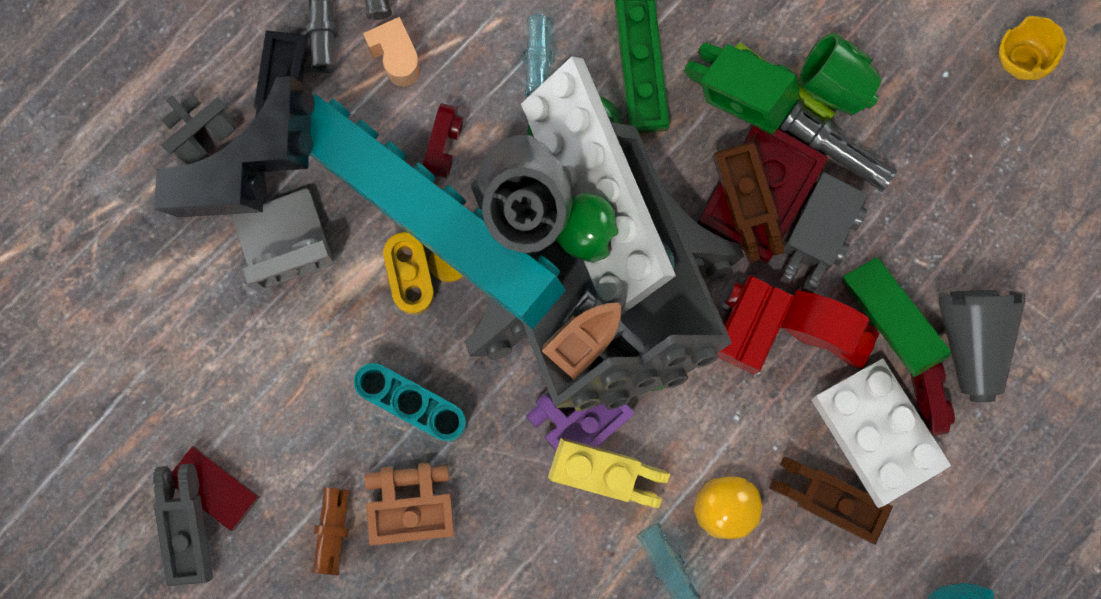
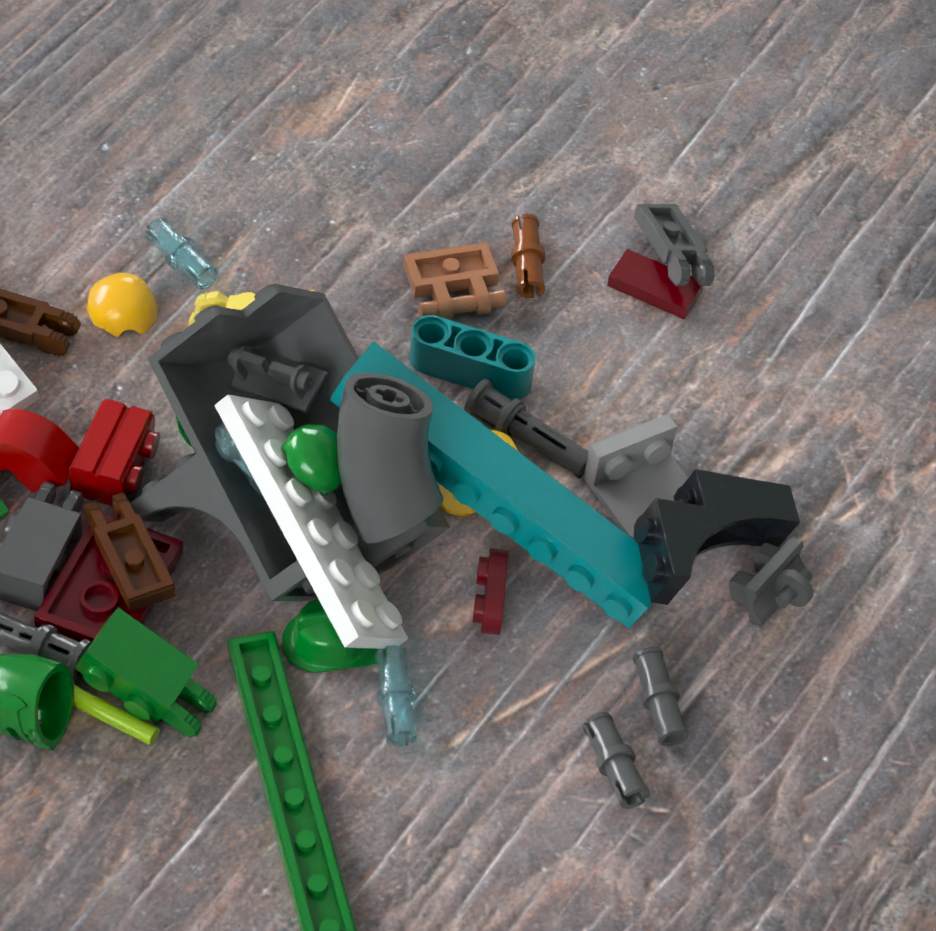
camera: 170 degrees right, 30 degrees down
(281, 57) = (695, 642): black hinge -> none
(386, 330) = (511, 418): none -> dark grey pin
(397, 50) = (567, 682): light nougat leg -> none
(583, 338) = (308, 347): nougat plate -> none

